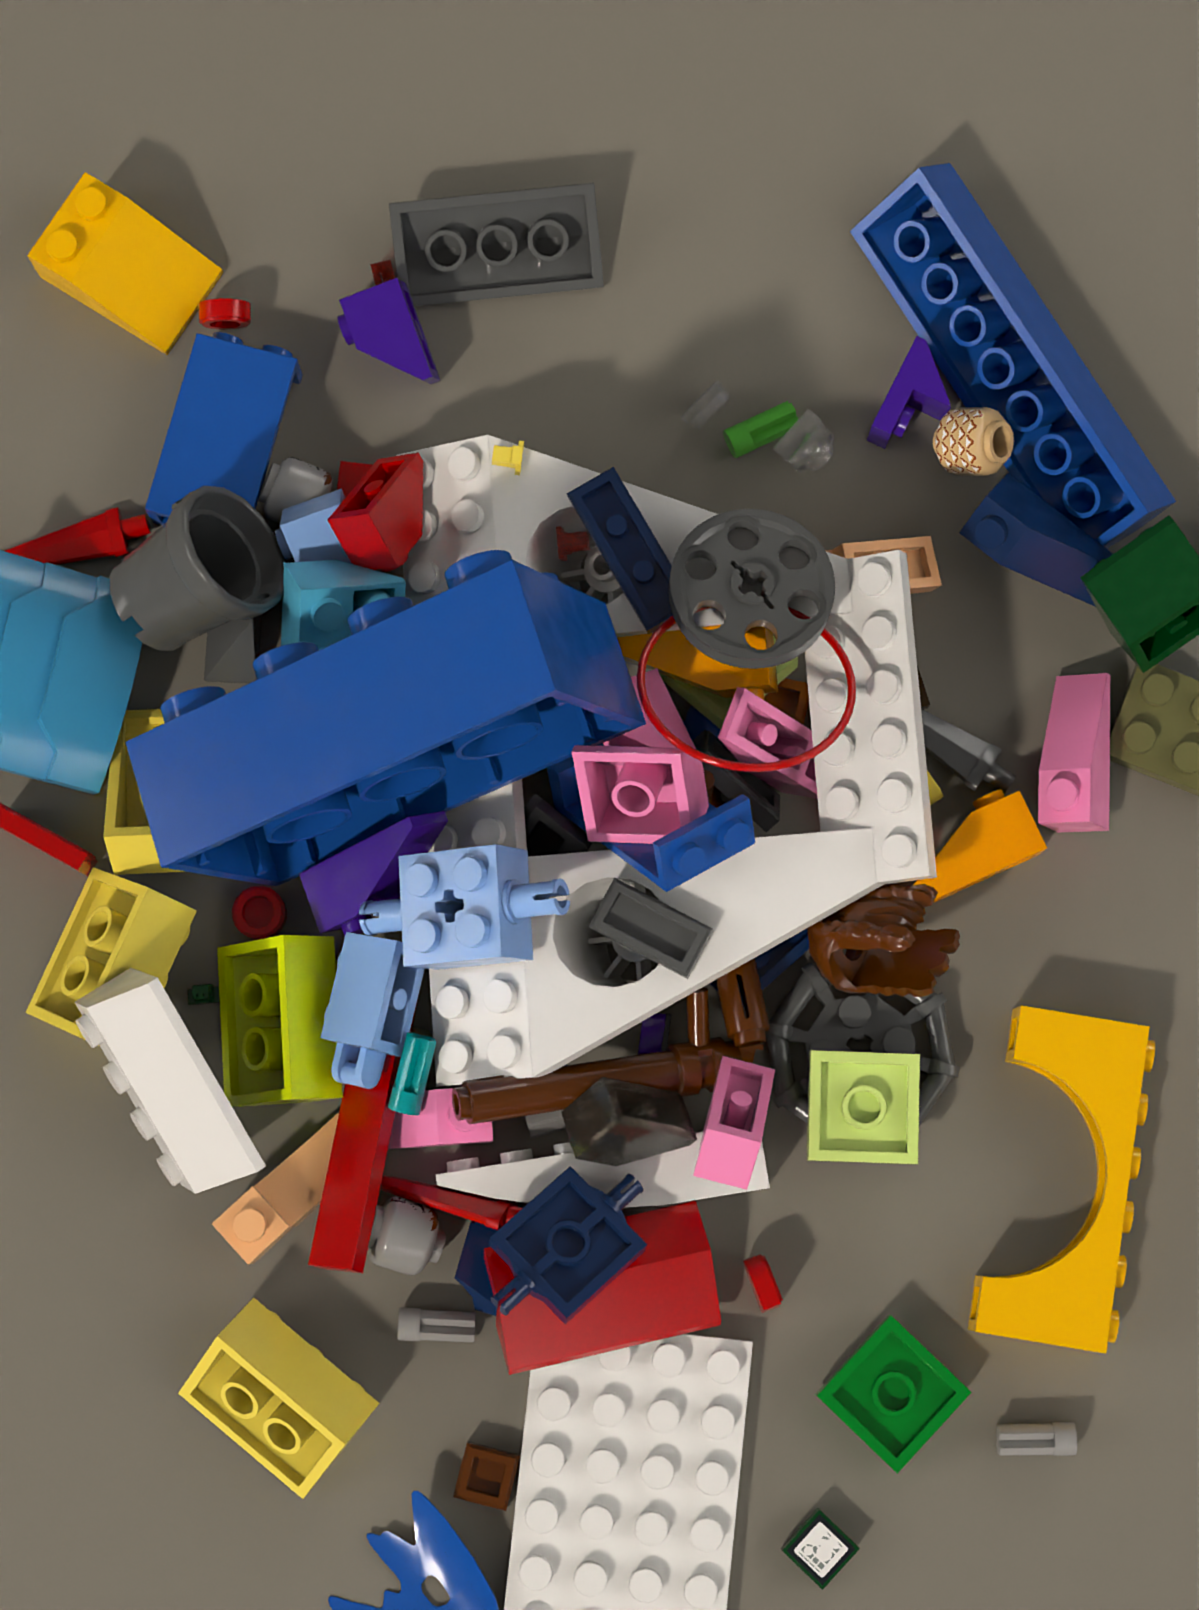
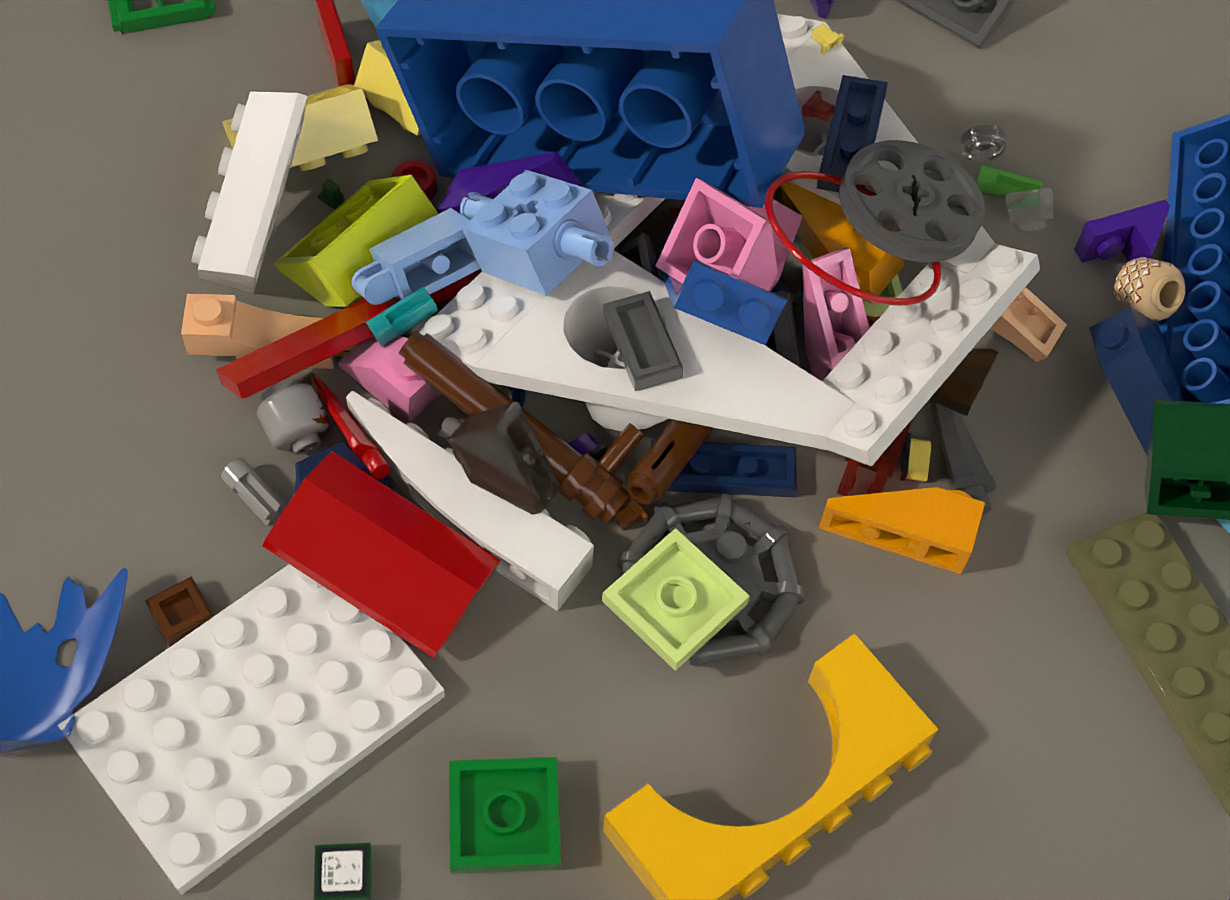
camera: 40 degrees right, 20 degrees down
(278, 1397) = (111, 438): light yellow slope -> none
(567, 1244) = (385, 488): dark blue plate -> none
(734, 1123) = (573, 518): bright pink slope -> none
(763, 1282) = (489, 660): red tile -> none
(883, 943) = (788, 513): reddish brown piece -> none
(1076, 756) = (1042, 528): bright pink slope -> none

